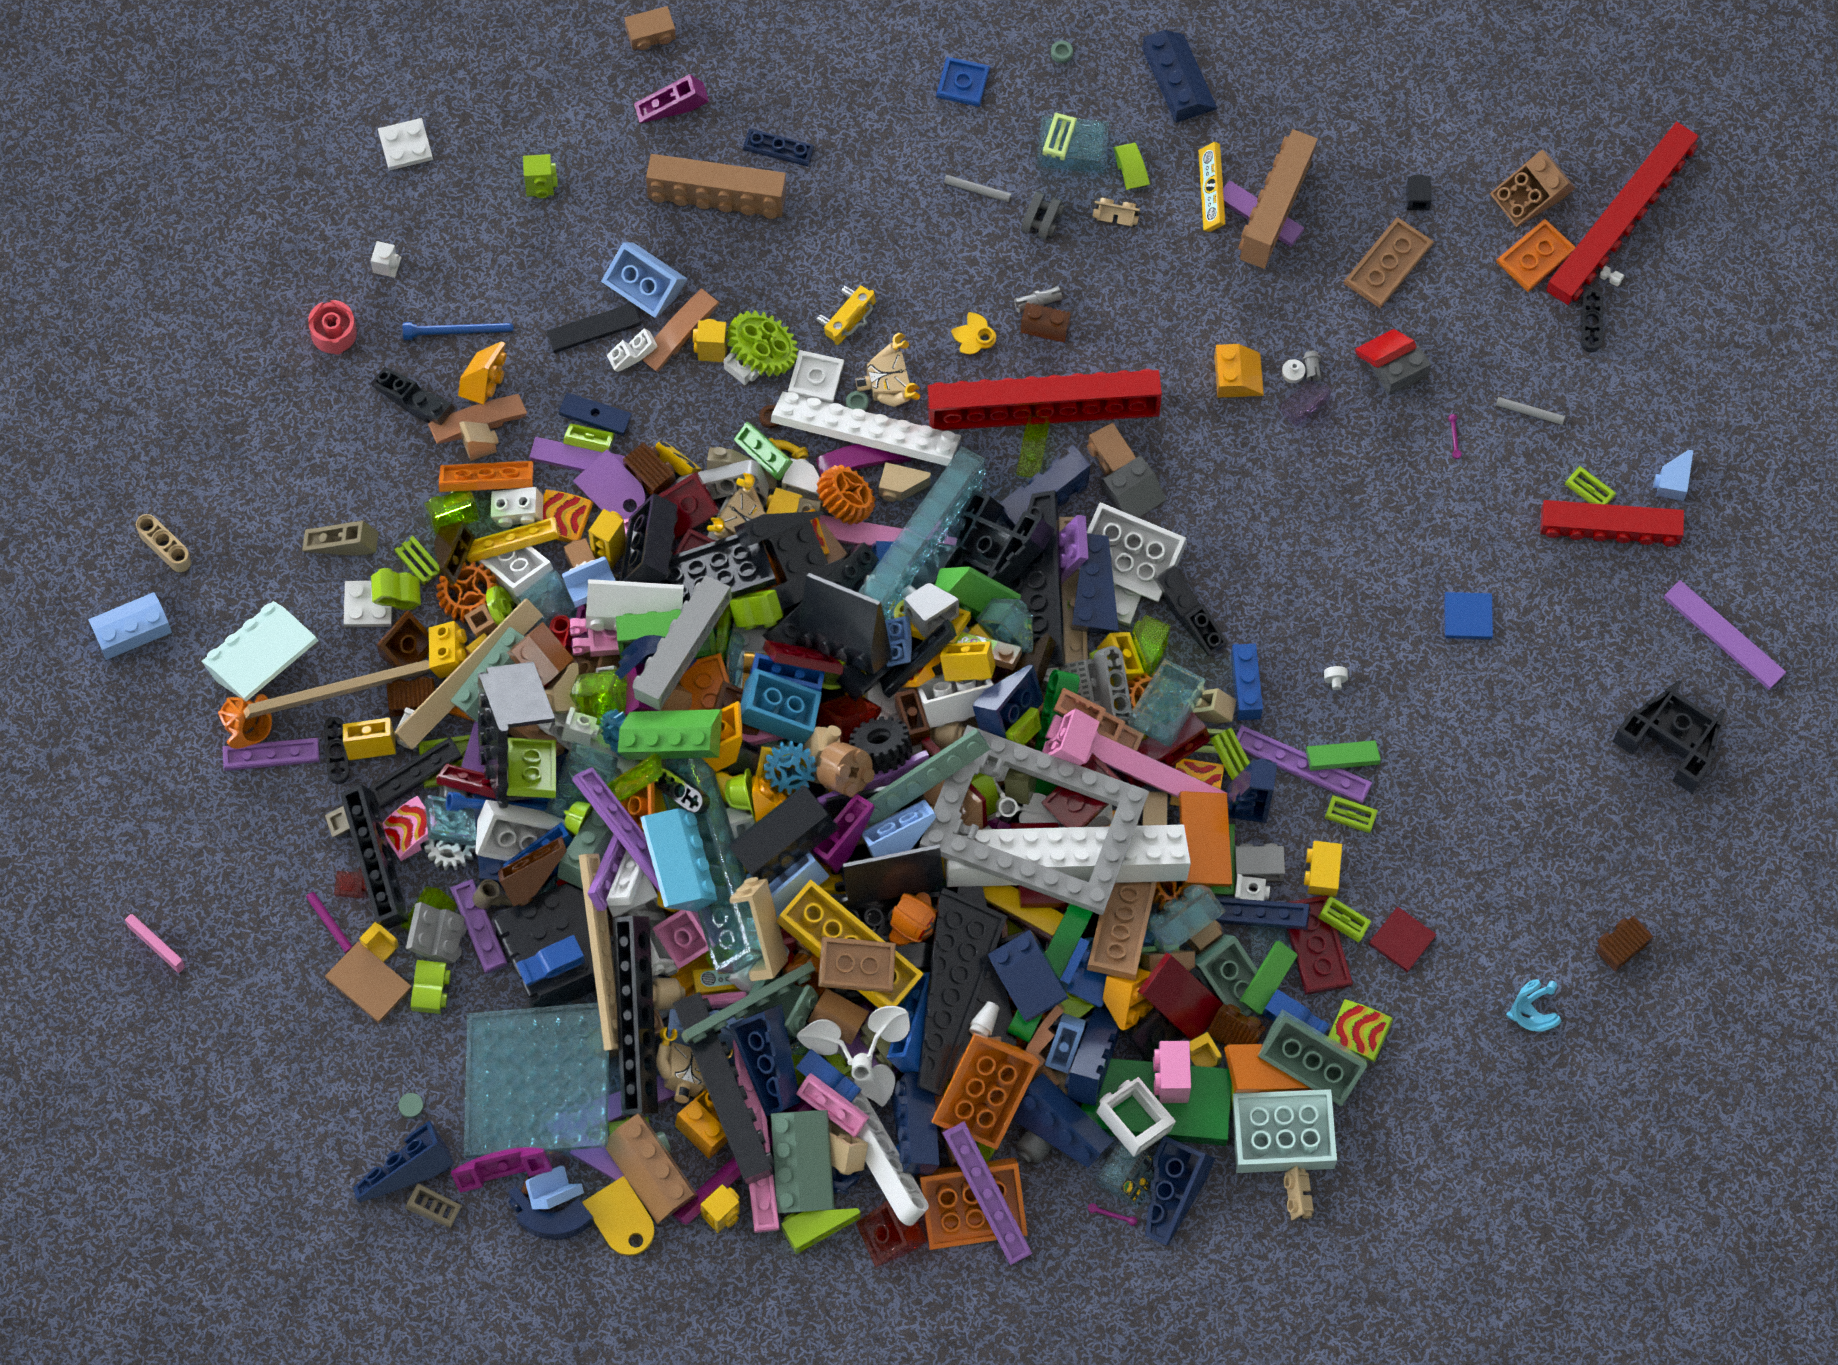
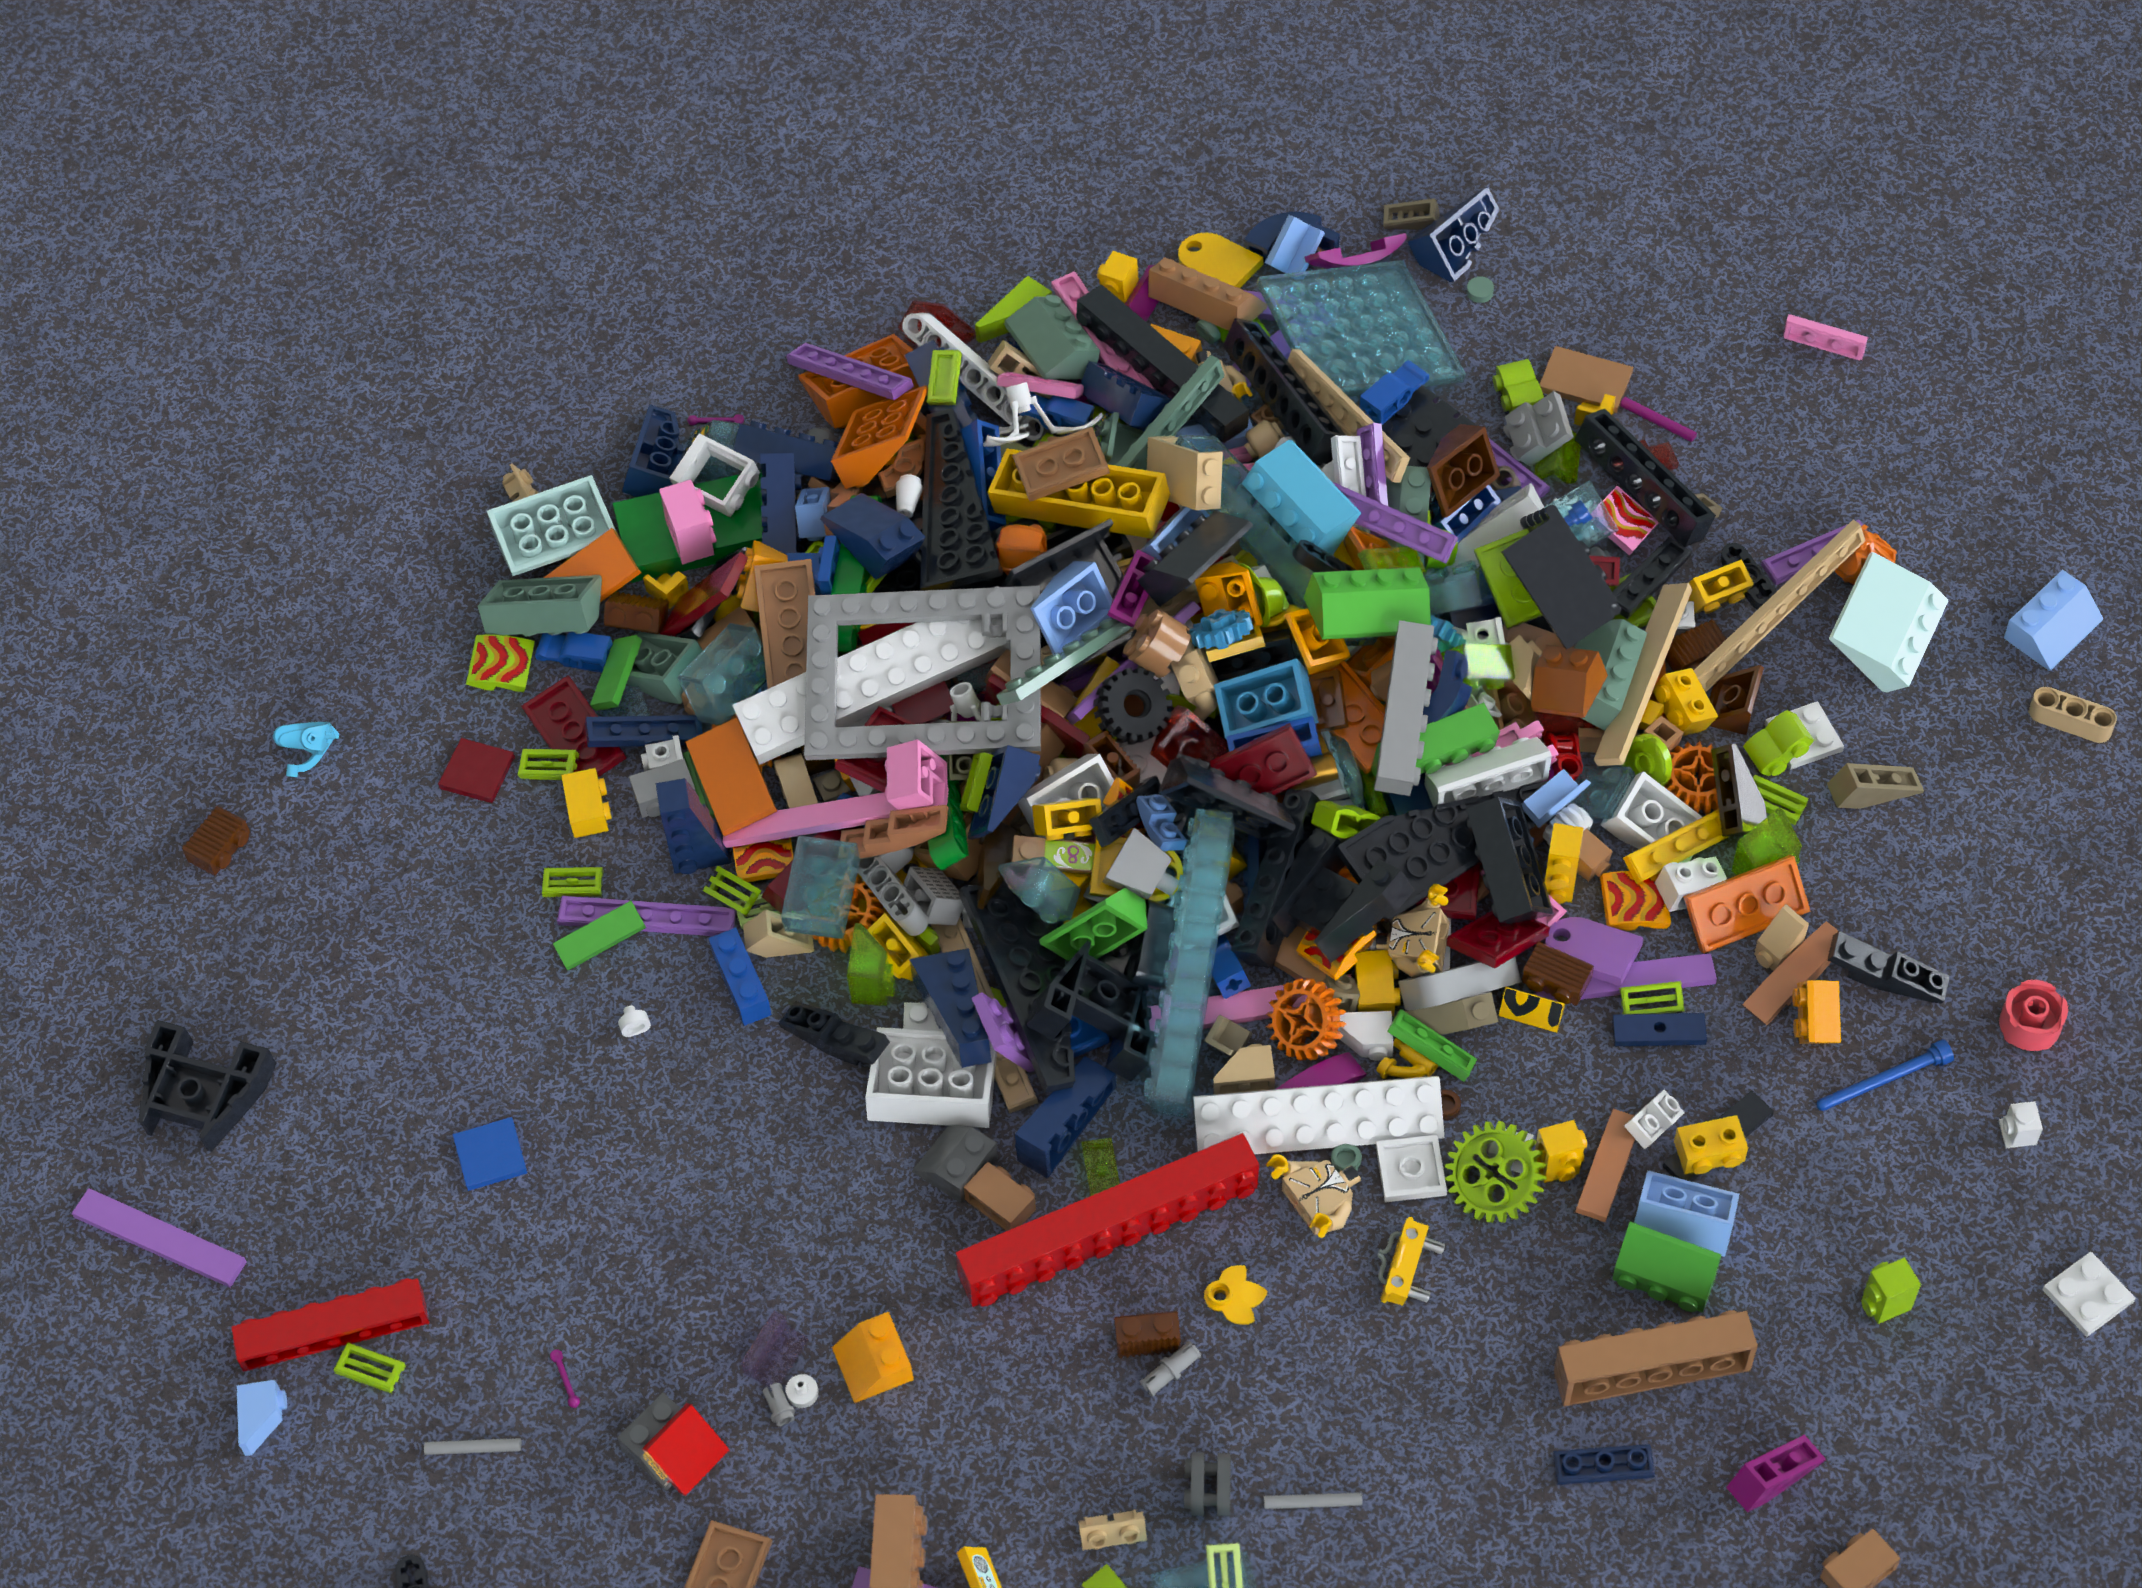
camera: 165 degrees right, 10 degrees down
(605, 312) = (1711, 1145): none -> yellow brick
(677, 243) = (1666, 1267): none -> bright green slope
(903, 510) = (1228, 1036): none -> dark tan panel
(914, 1122) = (944, 377): none -> lime tile

